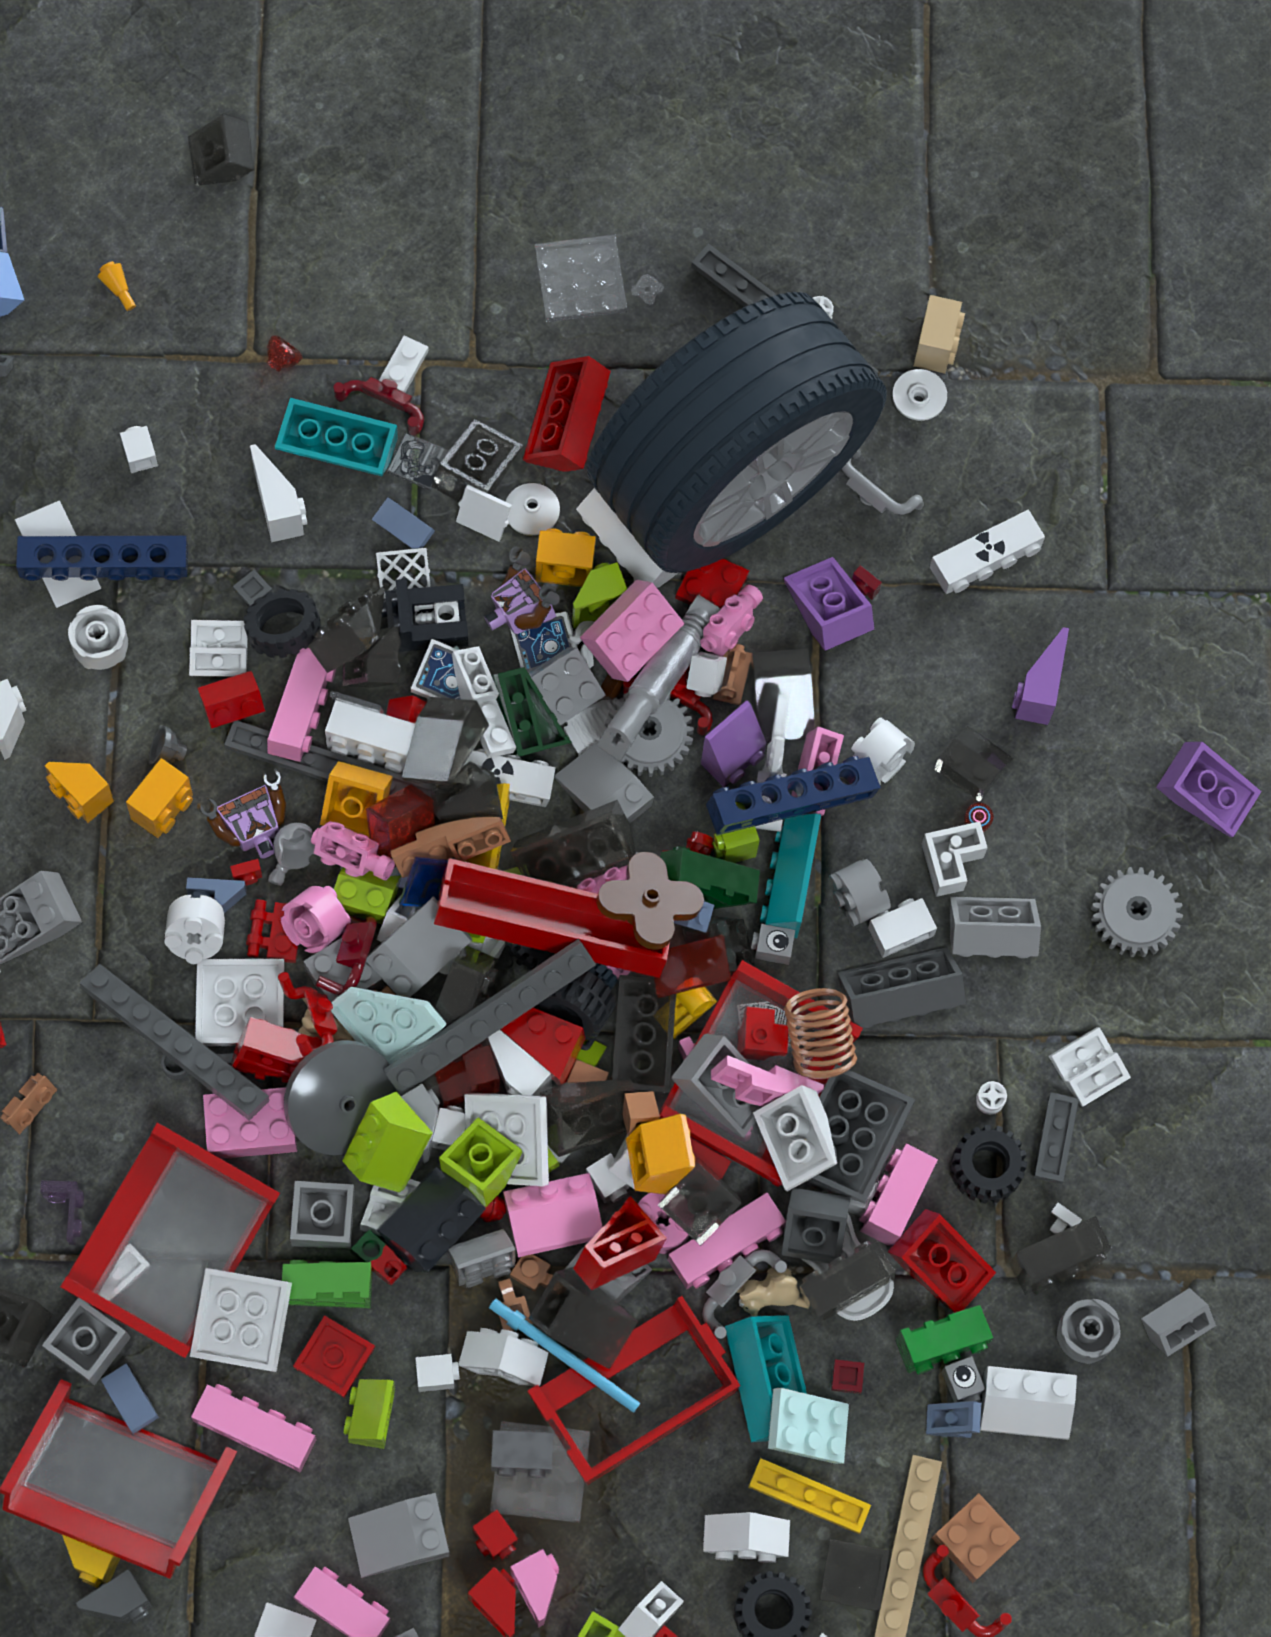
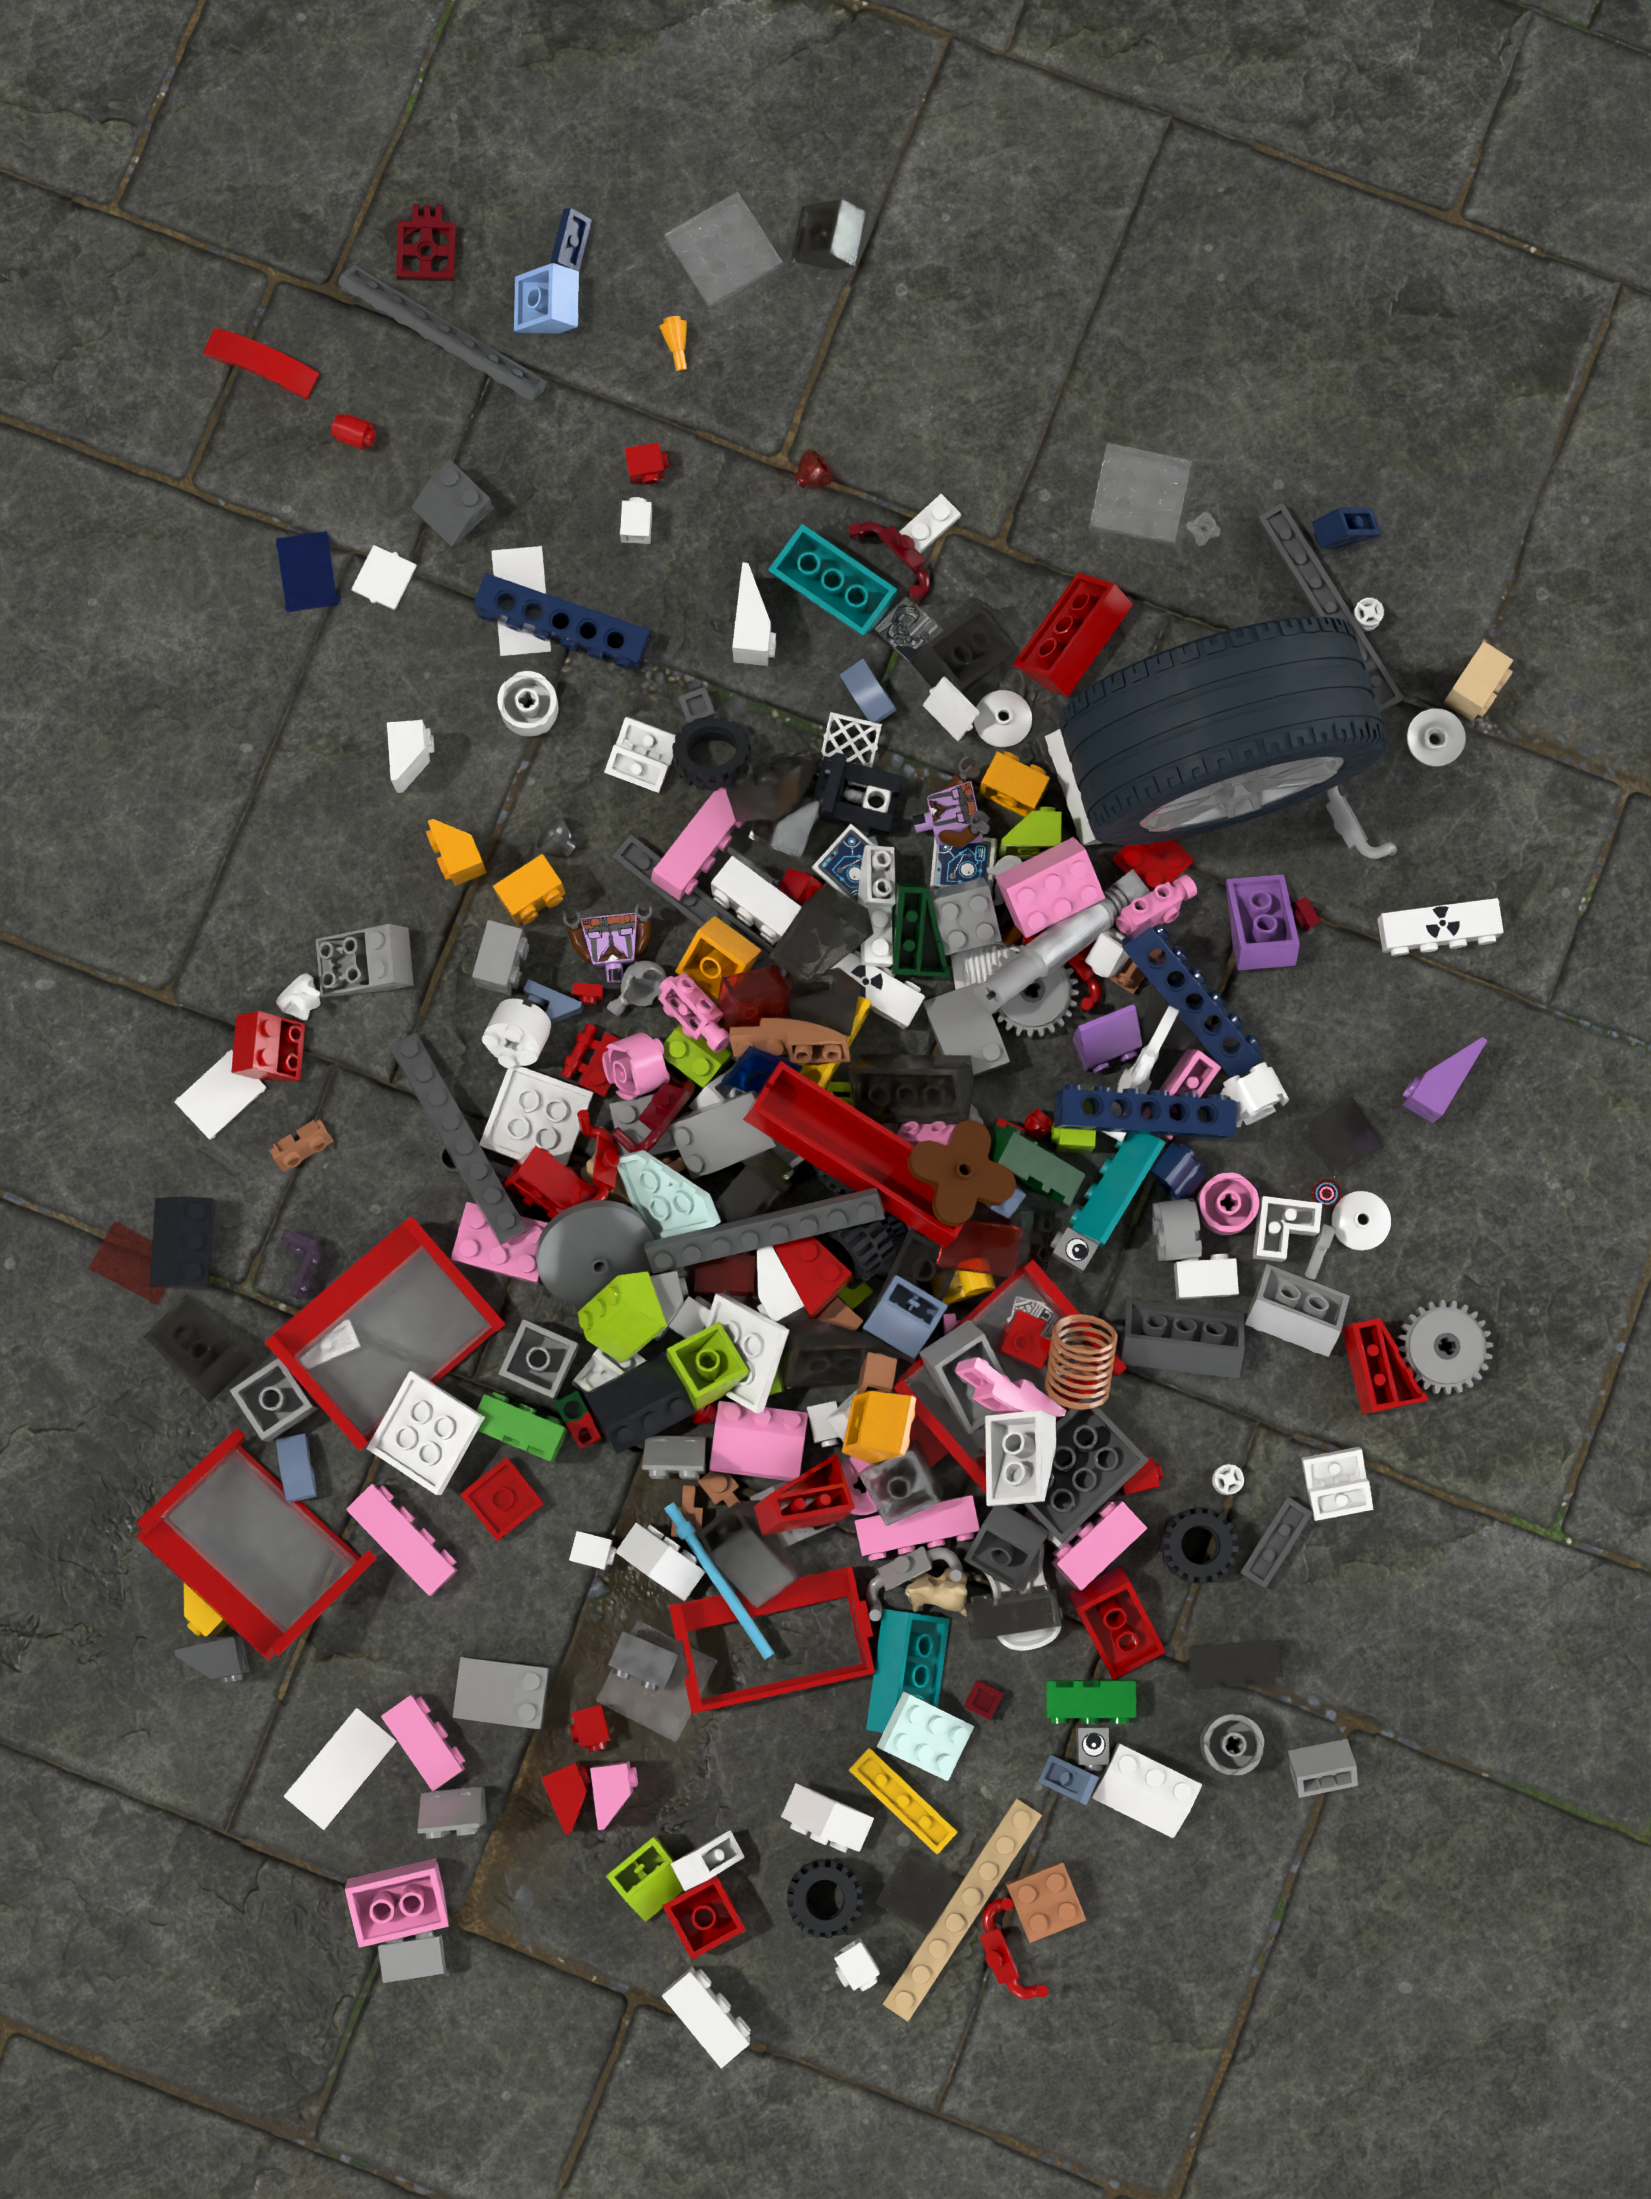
camera: 25 degrees right, 10 degrees up
(129, 396) = (646, 463): none -> red brick
(131, 194) = (723, 250): none -> clear plate
(153, 865) = (500, 958): none -> light grey brick
(231, 699) = (634, 813): red brick -> none
(371, 1412) = (516, 1567): lime slope -> none
(646, 1049) = (904, 1316): none -> sand blue slope
(770, 246) = (1345, 527): none -> dark blue slope
(841, 840) = (1178, 1171): none -> dark blue brick
(852, 727) = (1233, 1059): none -> dark blue brick
(902, 841) = (1238, 1191): none -> bright pink brick
(917, 1123) = (1145, 1479): none -> red brick
(993, 857) = (1323, 1242): none -> light grey bar
(1014, 842) = (1346, 1222): none -> white dish
(1064, 1217) = (1252, 1624): white tile -> none
(1087, 951) = (1378, 1368): none -> red wedge
(1208, 787) = (1567, 1247): medium lavender slope -> none

